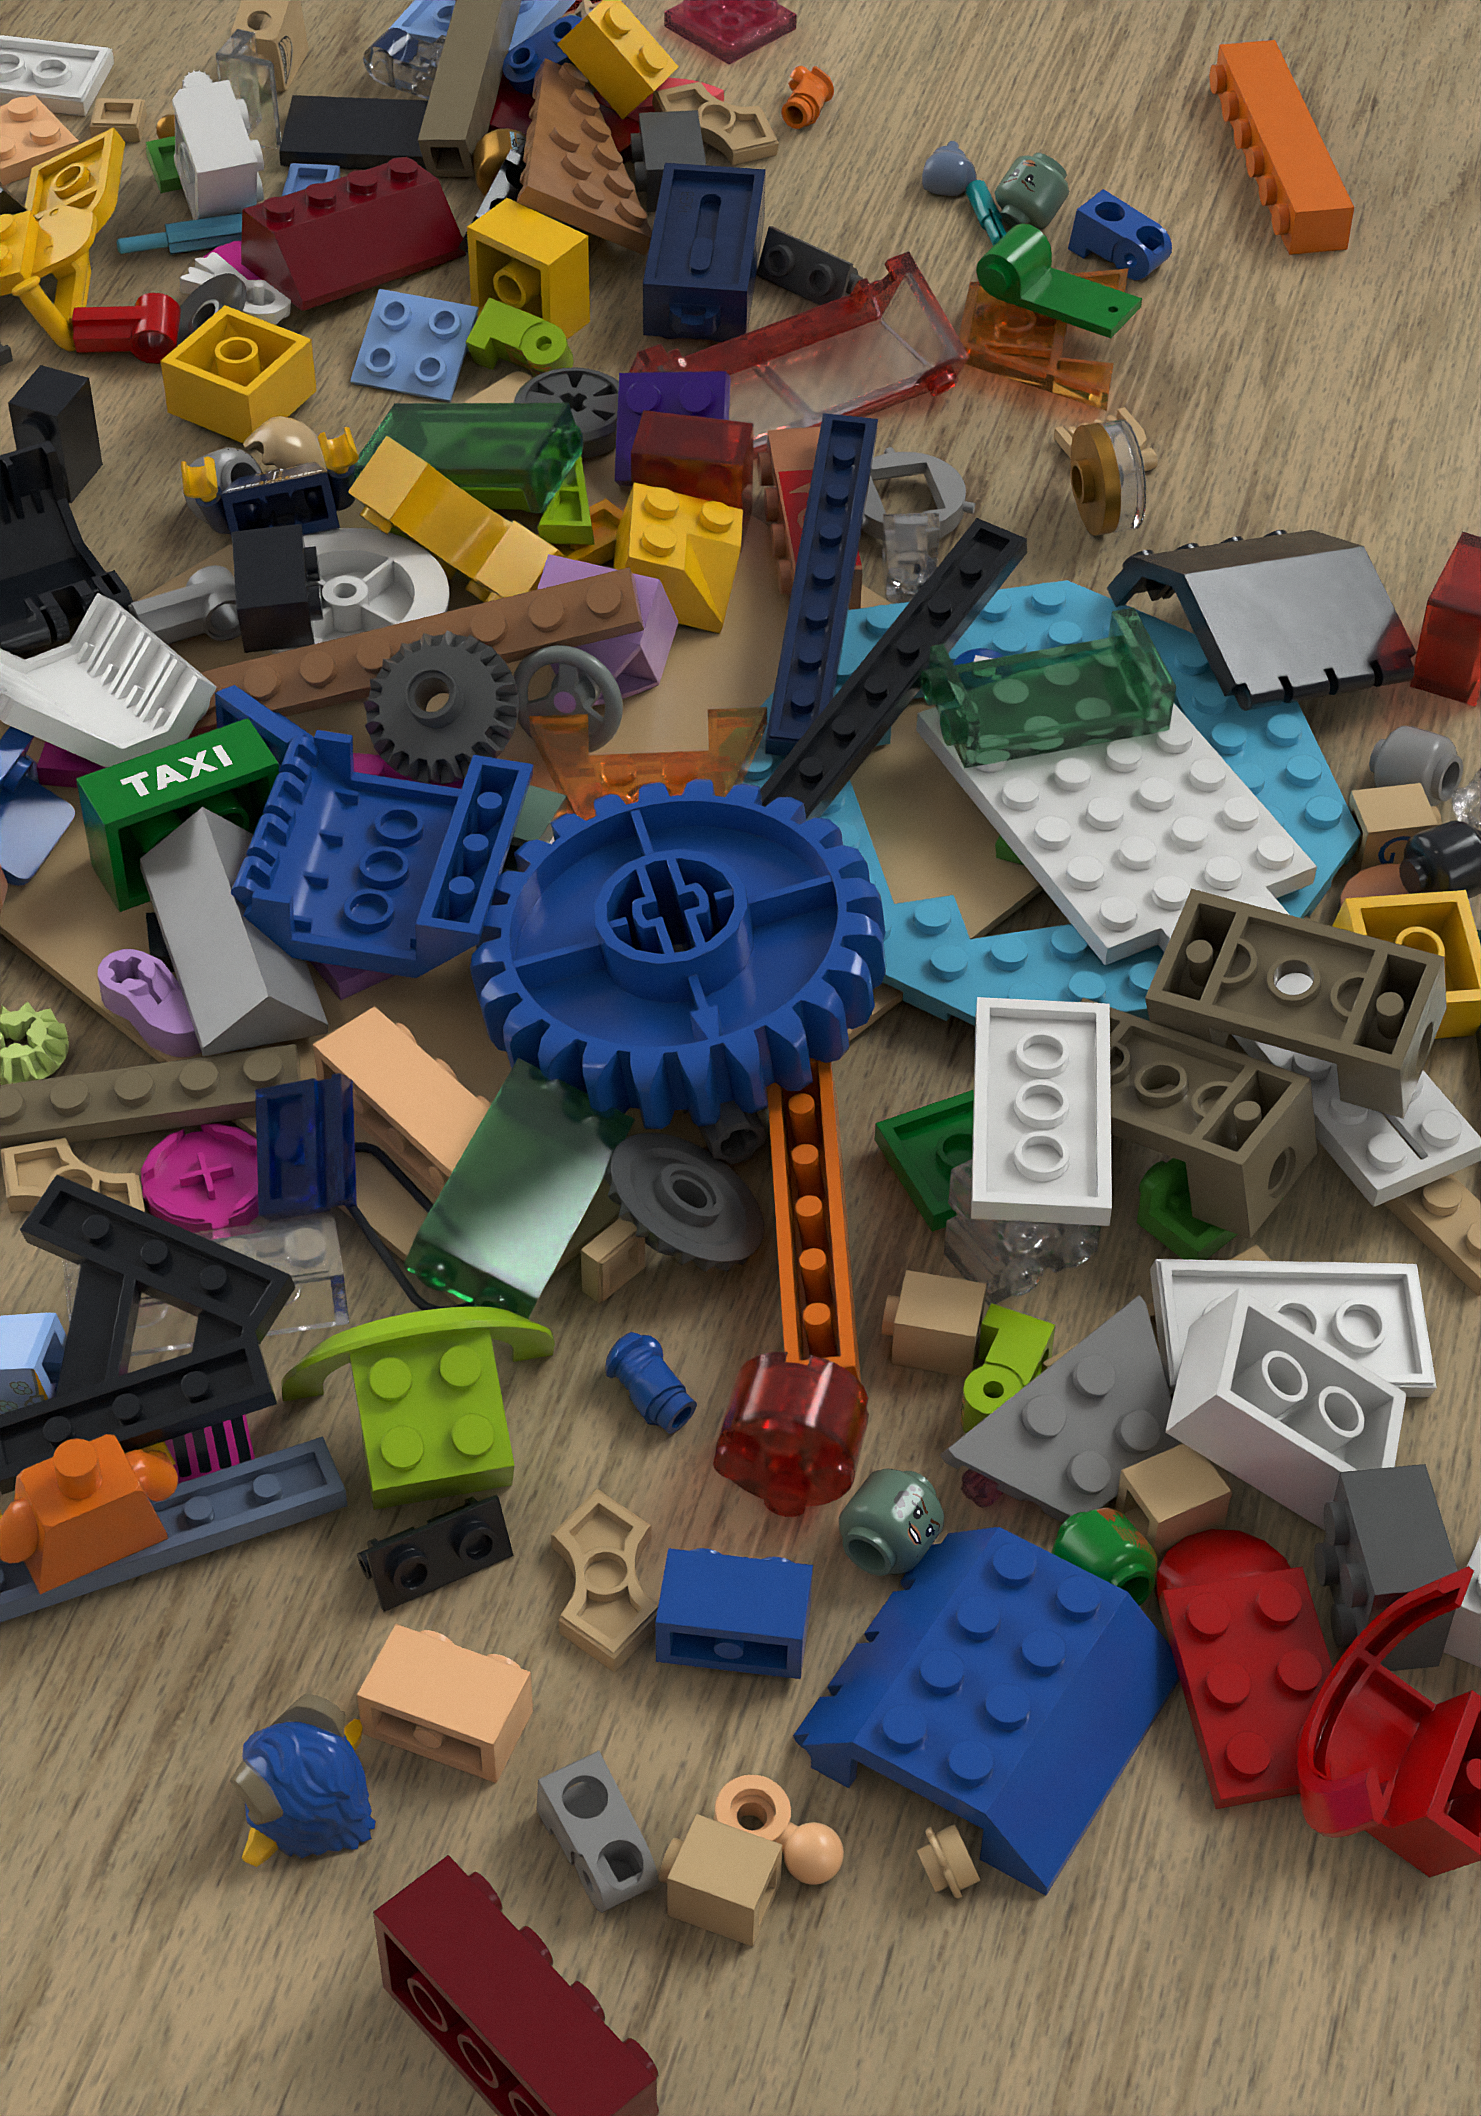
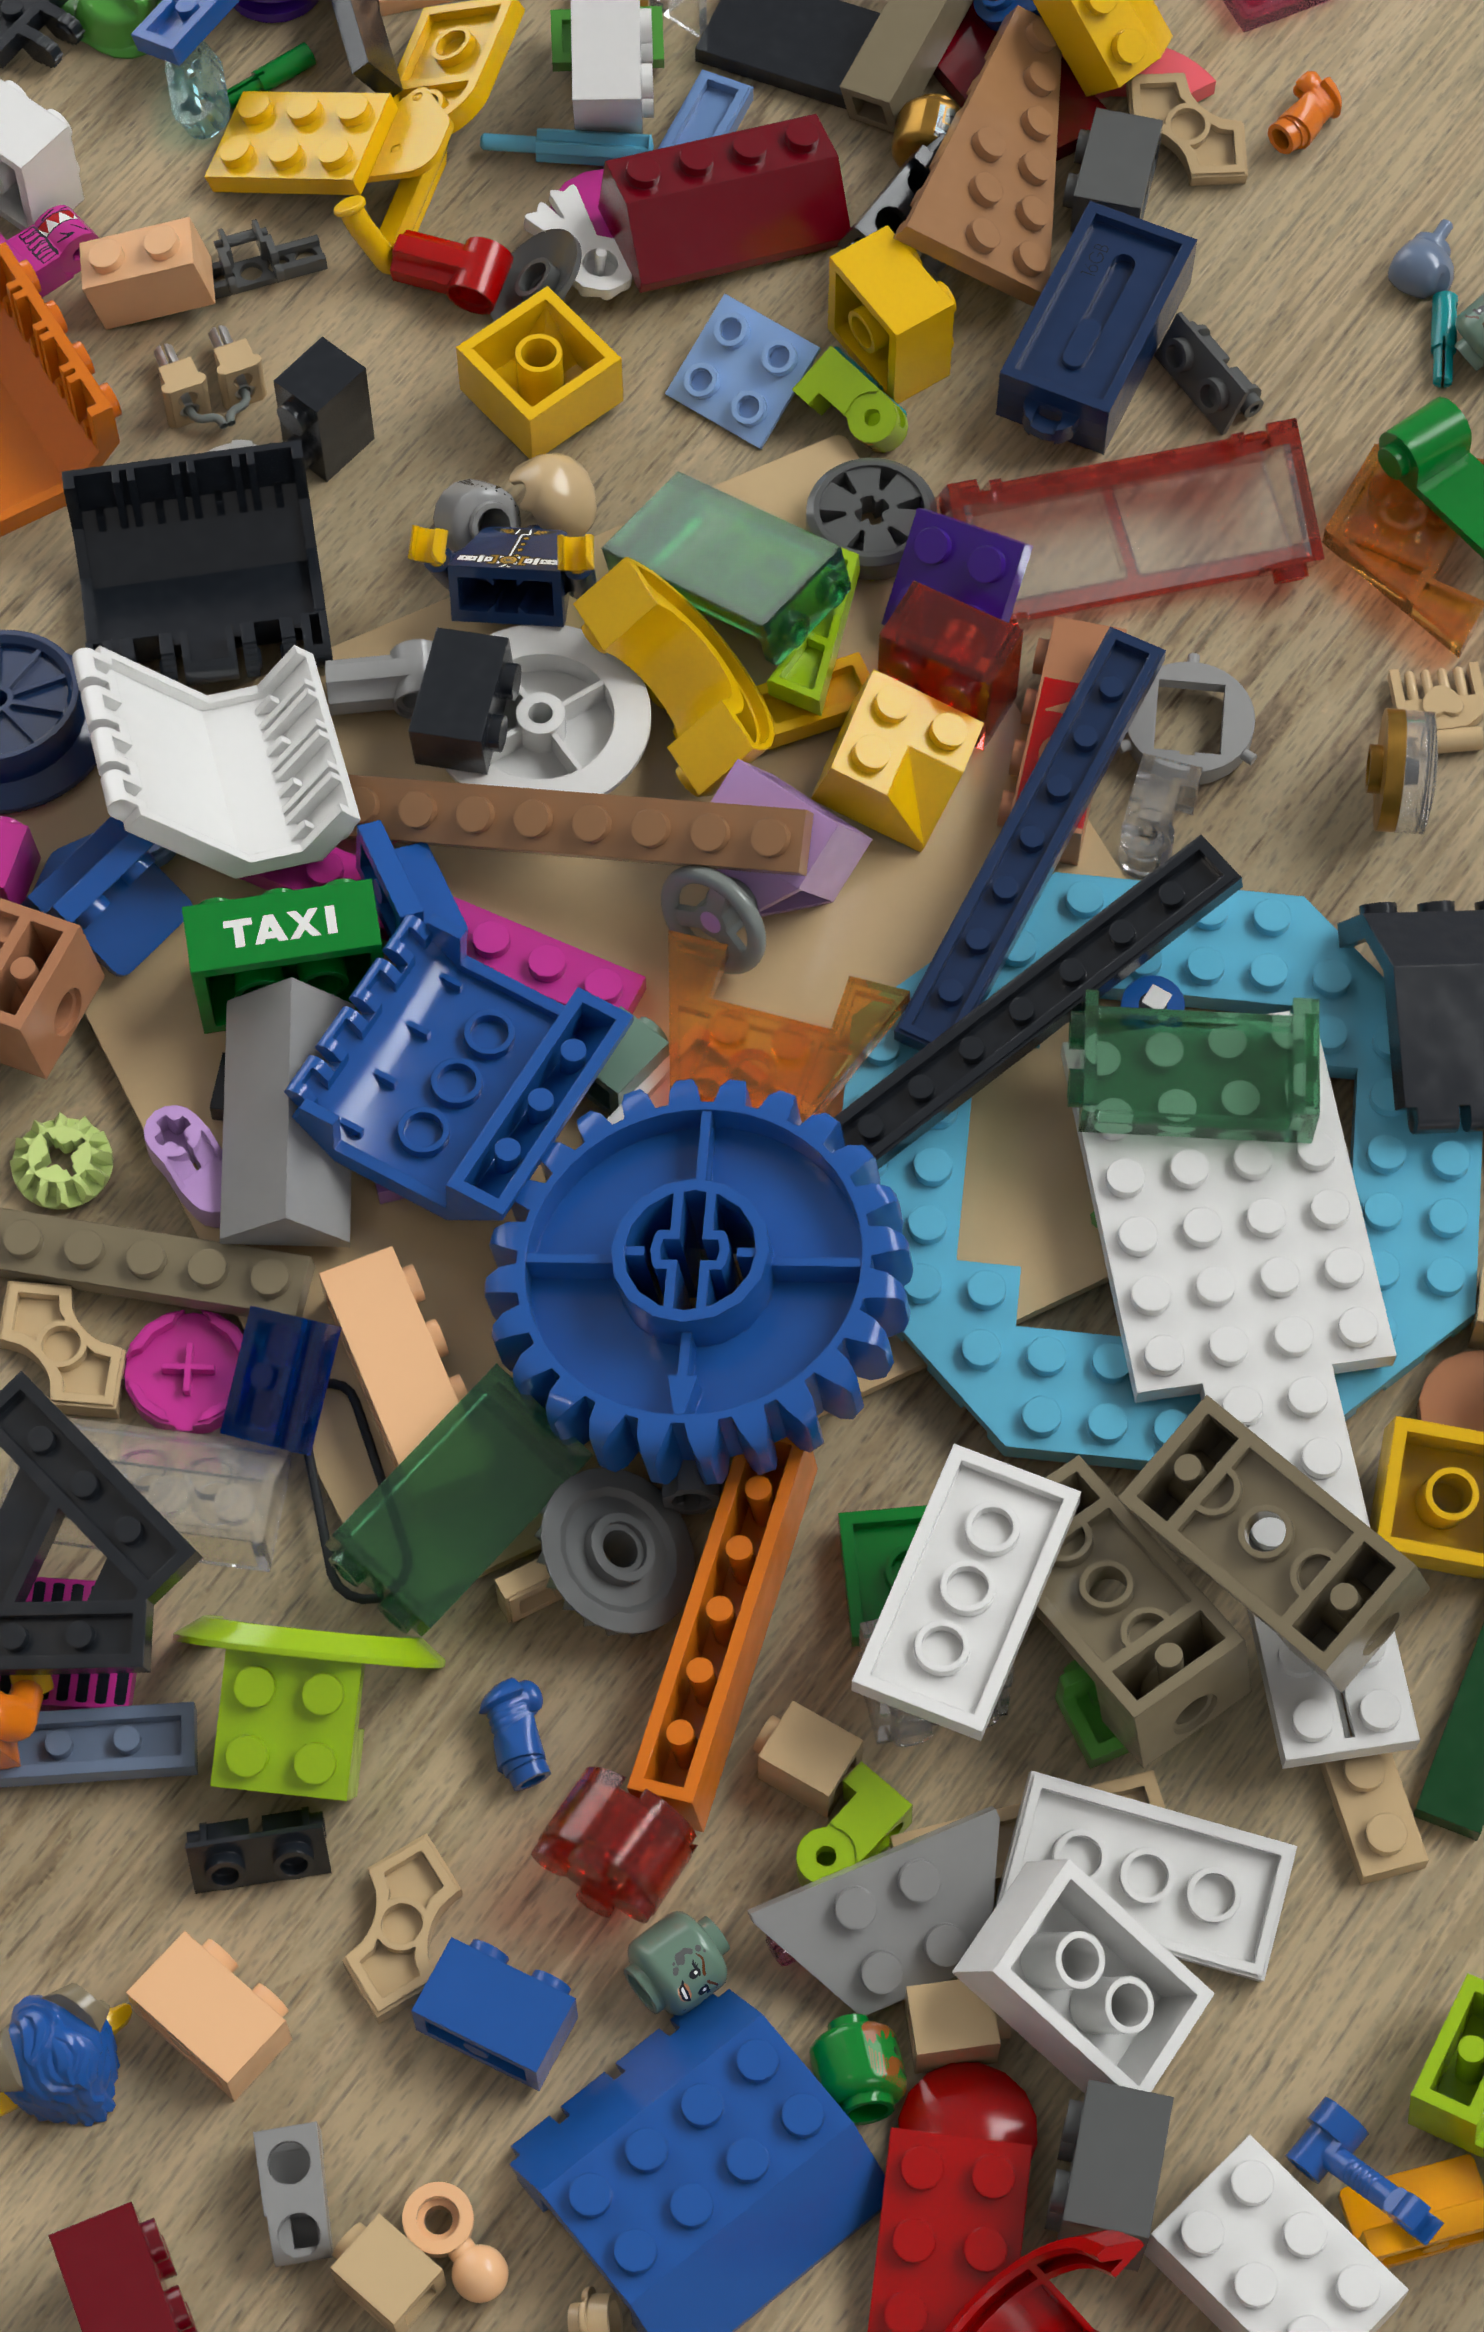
camera: 20 degrees right, 15 degrees up
(473, 721) = (614, 907): dark grey gear -> none

